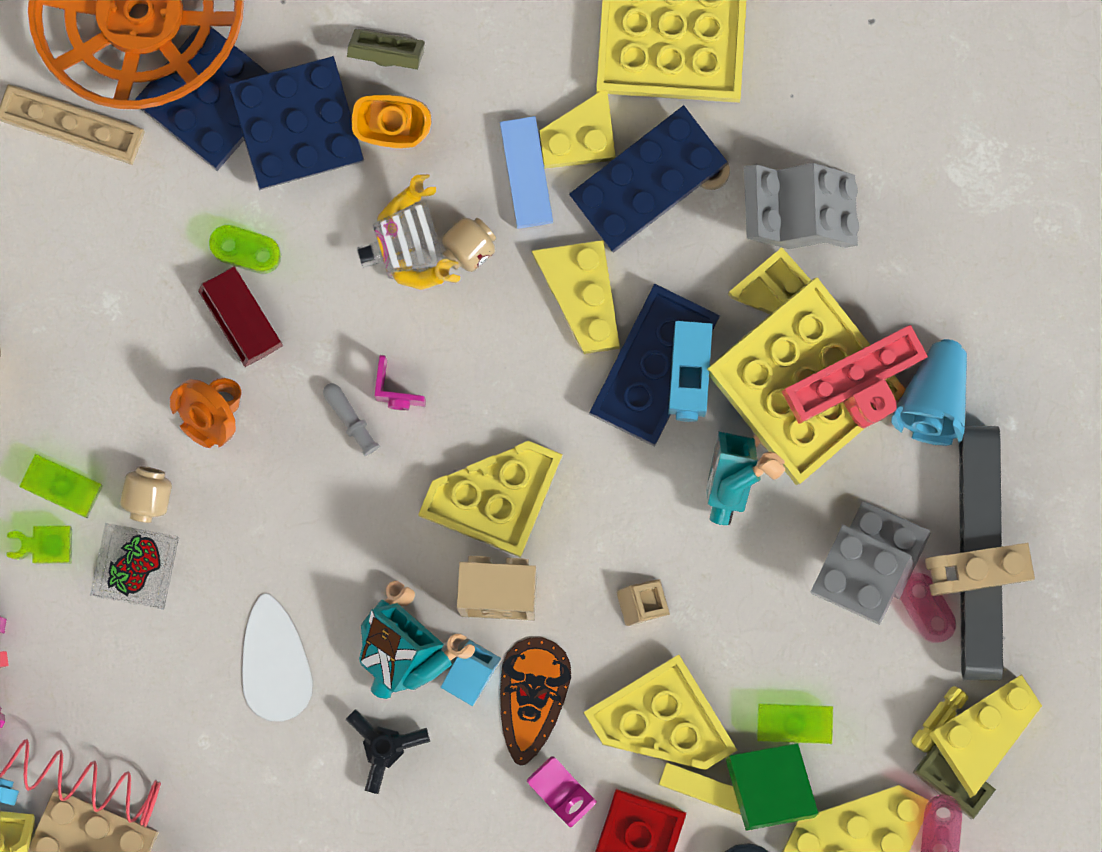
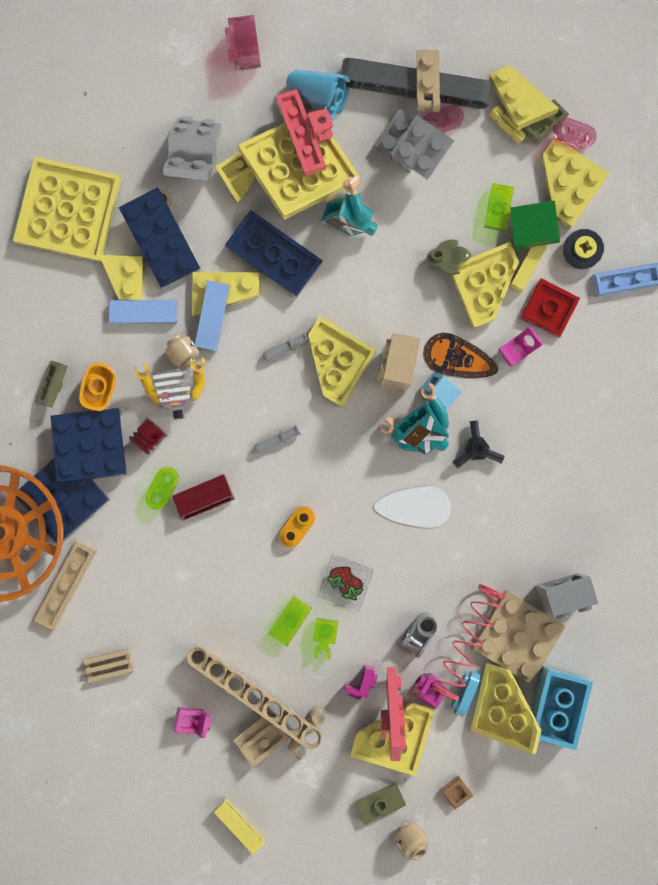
camera: 85 degrees left, 5 degrees up
(61, 696) = (418, 635): none -> light grey piece
(146, 494) = (303, 569): tan head -> none
(205, 412) = (259, 526): orange tile -> none
(213, 474) = (296, 526): none -> light orange plate
(324, 213) = (148, 436): none -> dark red piece
(395, 401) = (271, 409): dark pink bracket -> none
(497, 399) = (276, 351): none -> light grey piece
(535, 282) = (212, 315): none -> light blue tile
(642, 602) = (413, 284): tan slope -> none
(689, 370) = (282, 230): medium azure brick -> none
(695, 655) = (448, 257): none -> olive plate
(995, 259) = (243, 42): none -> clear pink brick

